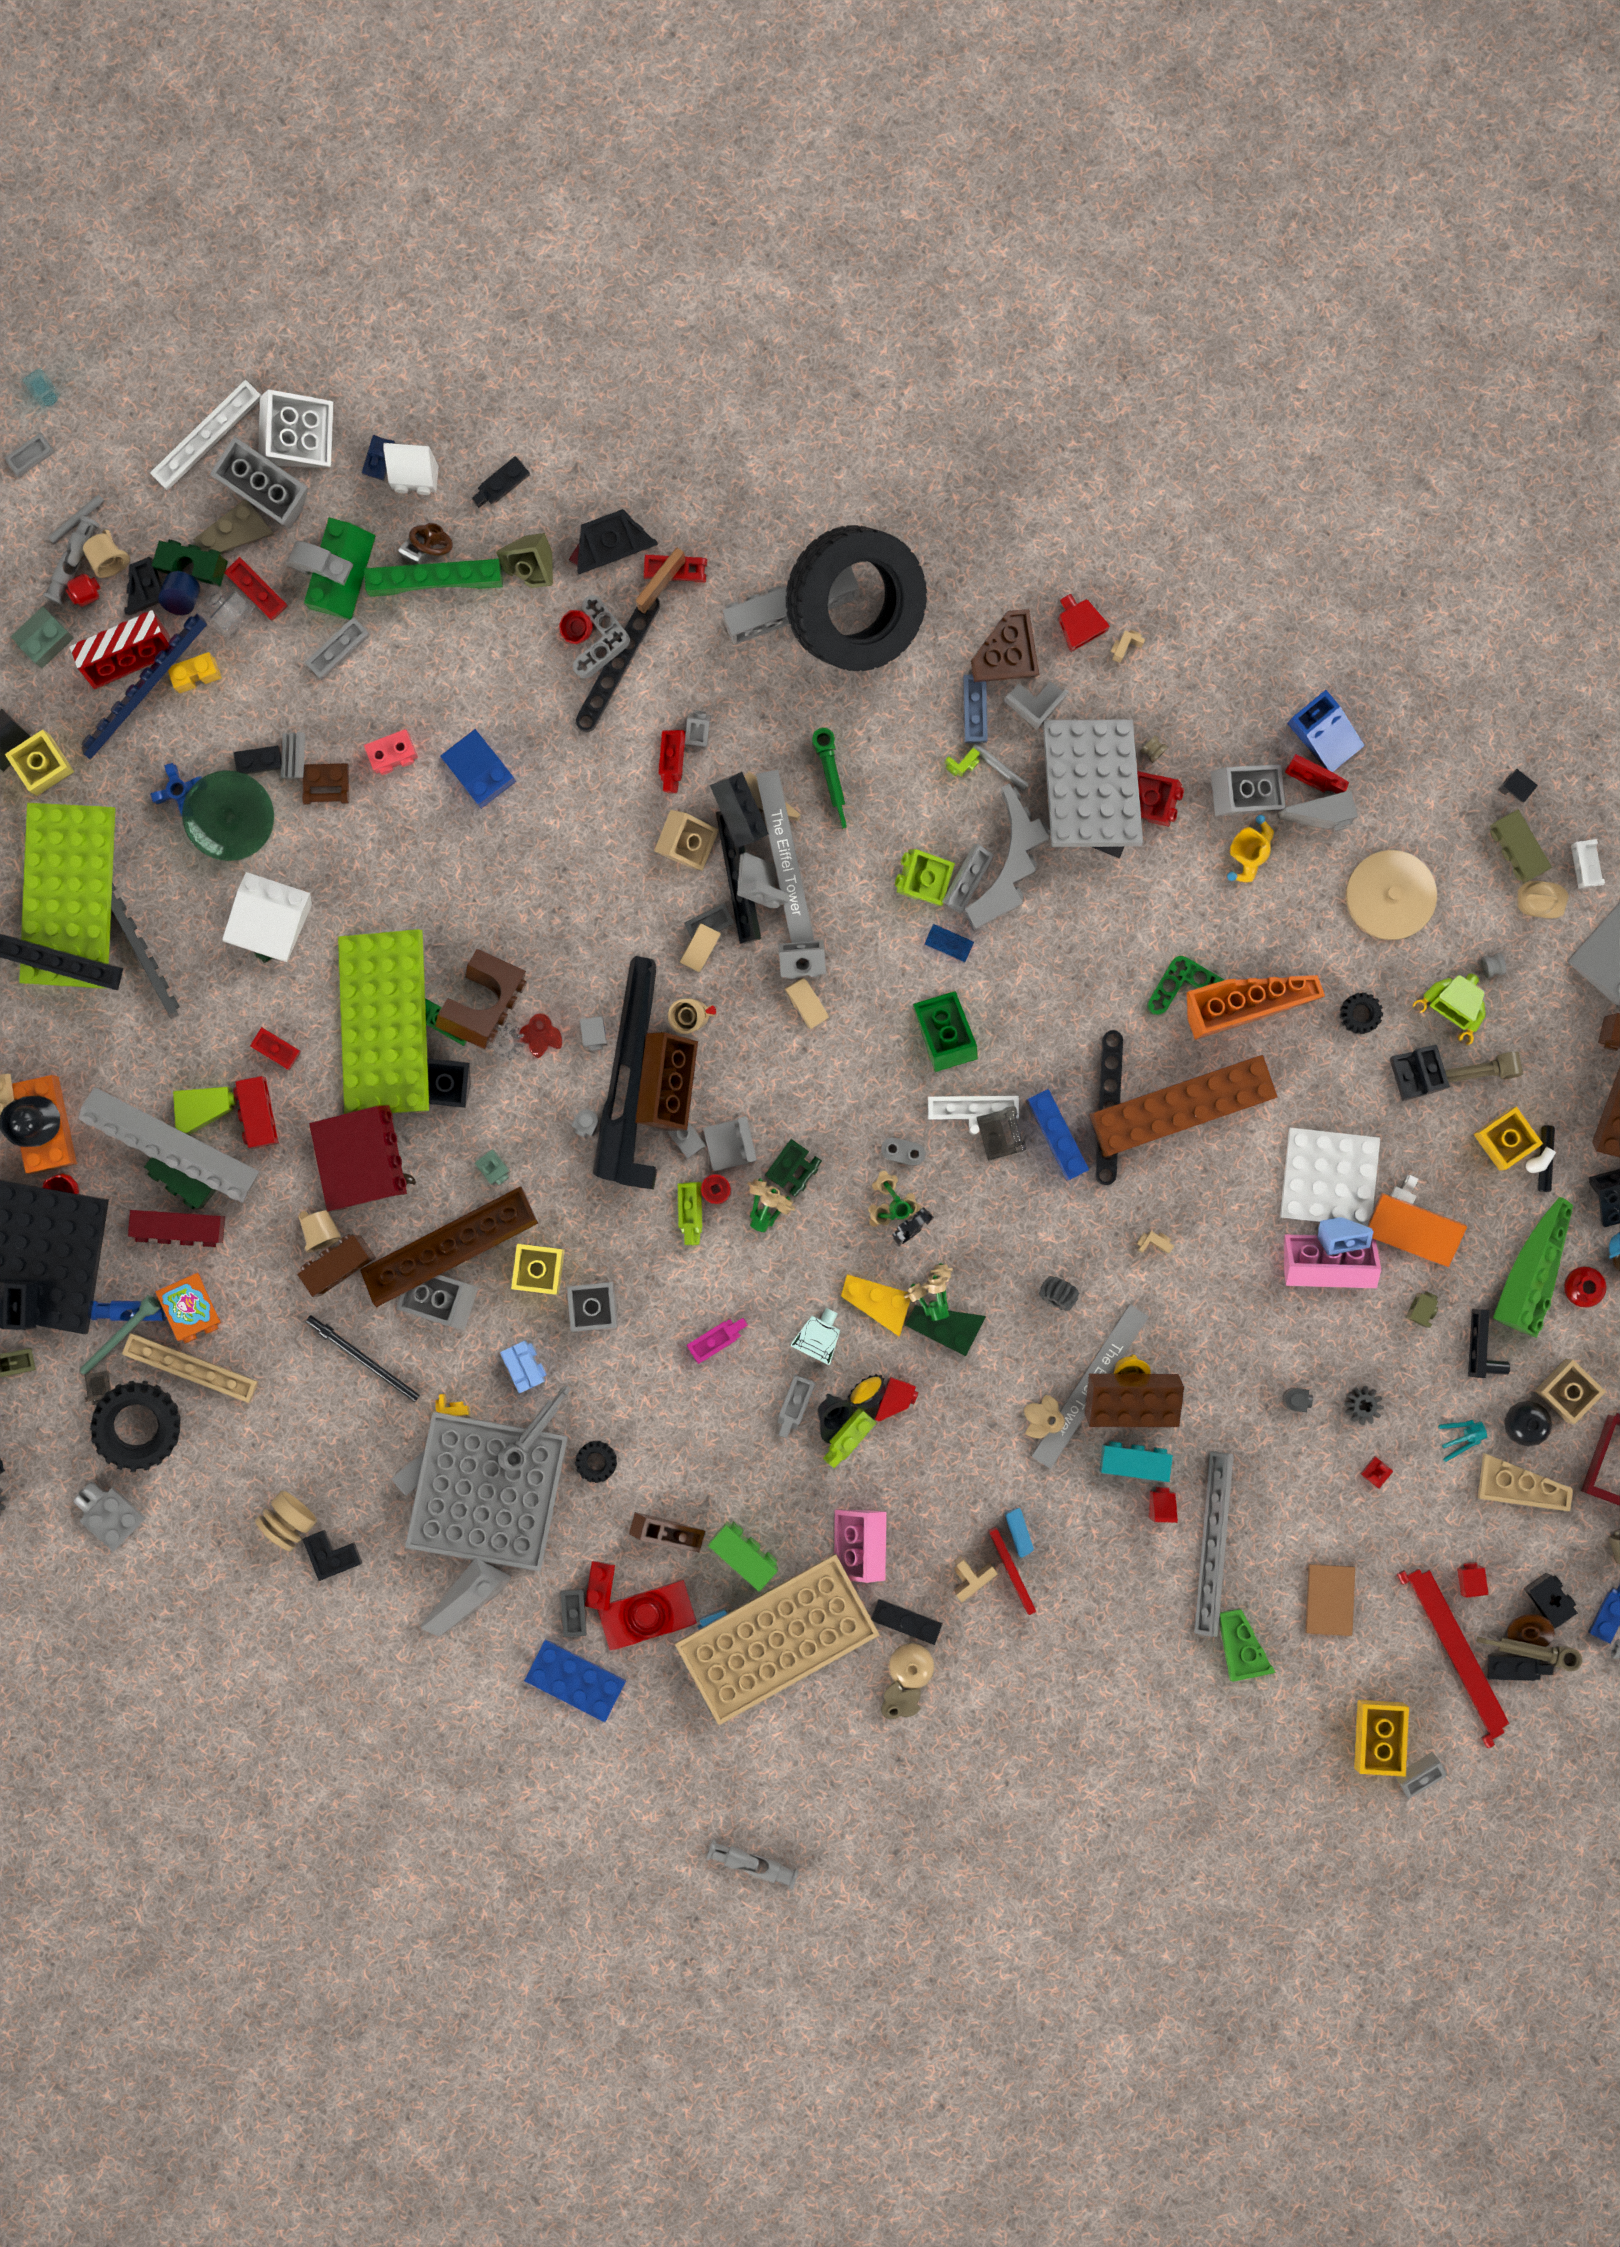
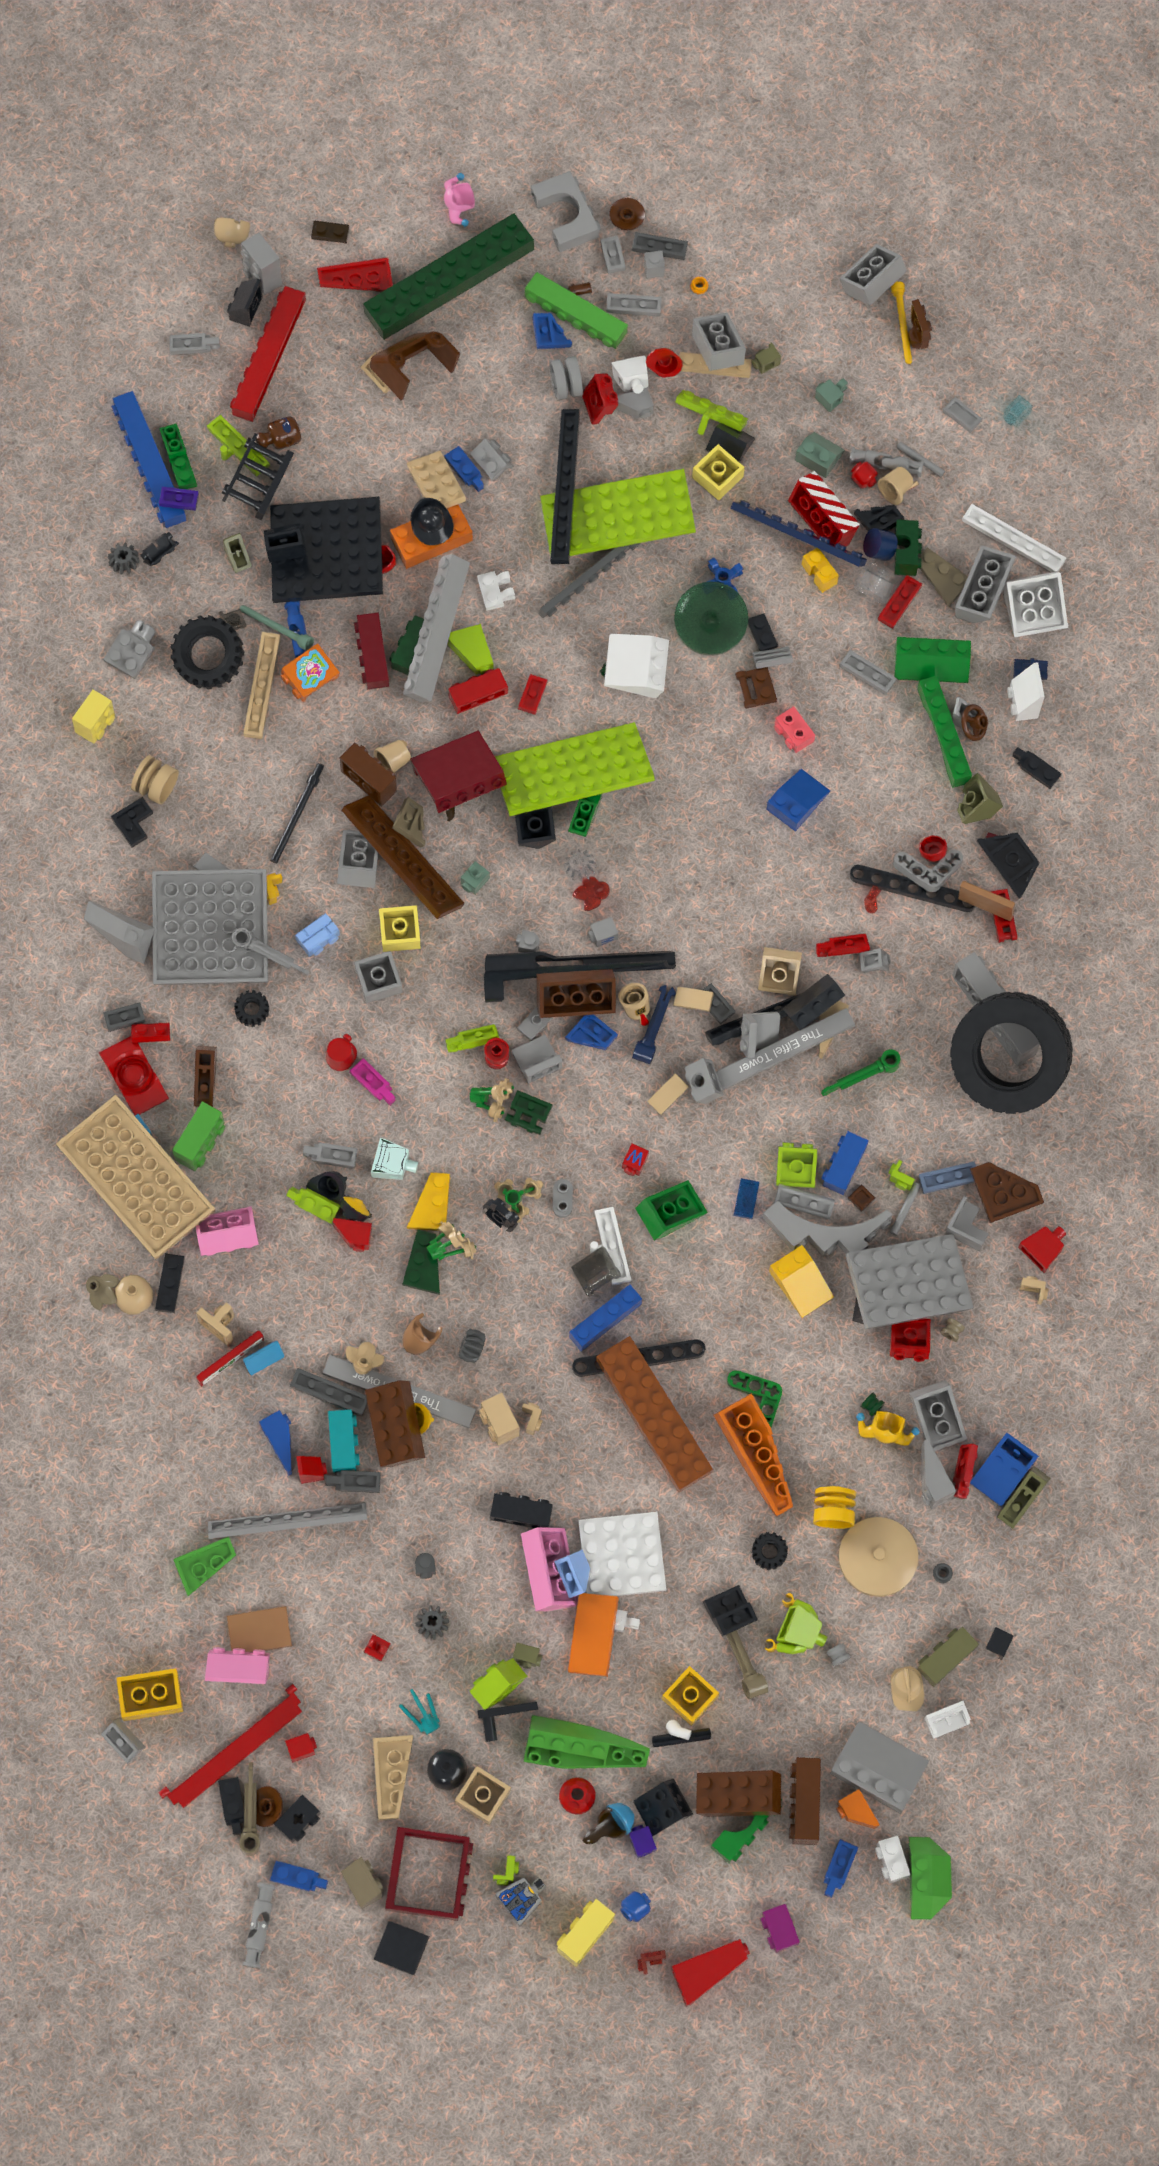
camera: 75 degrees right, 15 degrees down
(129, 1069) = (490, 589): none -> white plate
(188, 1578) = (93, 716): none -> light yellow brick
(311, 558) = (931, 641): light grey arch -> none
(405, 1228) = (410, 822): none -> dark tan wing
(481, 1025) = (587, 838): reddish brown arch -> none
(575, 1680) = (68, 1030): blue plate -> none
(622, 715) = (871, 899): none -> clear red arm
(674, 1368) = (341, 1053): none -> red hat
(713, 1073) = (592, 1033): none -> blue wing
(747, 1016) = (645, 1048): none -> dark blue piece
(878, 1059) = (635, 1160): none -> red brick
(933, 821) = (844, 1162): none -> blue brick
(976, 813) = (861, 1198): none -> reddish brown tile
(1035, 1349) = (417, 1338): none -> medium nougat piece
(1061, 904) = (801, 1281): none -> yellow slope
(1074, 1465) = (329, 1391): none -> dark grey plate
(1114, 1533) = (278, 1434): none -> blue slope
(1153, 1280) = (500, 1419): none -> tan brick
(1185, 1457) = (355, 1481): none -> dark grey hinge
(1220, 859) = (872, 1404): none -> dark green wheel
(1259, 1278) = (521, 1510): none -> black brick
(1334, 930) = (833, 1507): none -> yellow wheel
(1362, 717) = (1023, 1497): none -> olive slope
(1373, 1634) = (237, 1666): none -> bright pink slope
(1431, 829) = (949, 1573): none -> dark grey plate
(1455, 1348) = (497, 1683): none -> lime brick

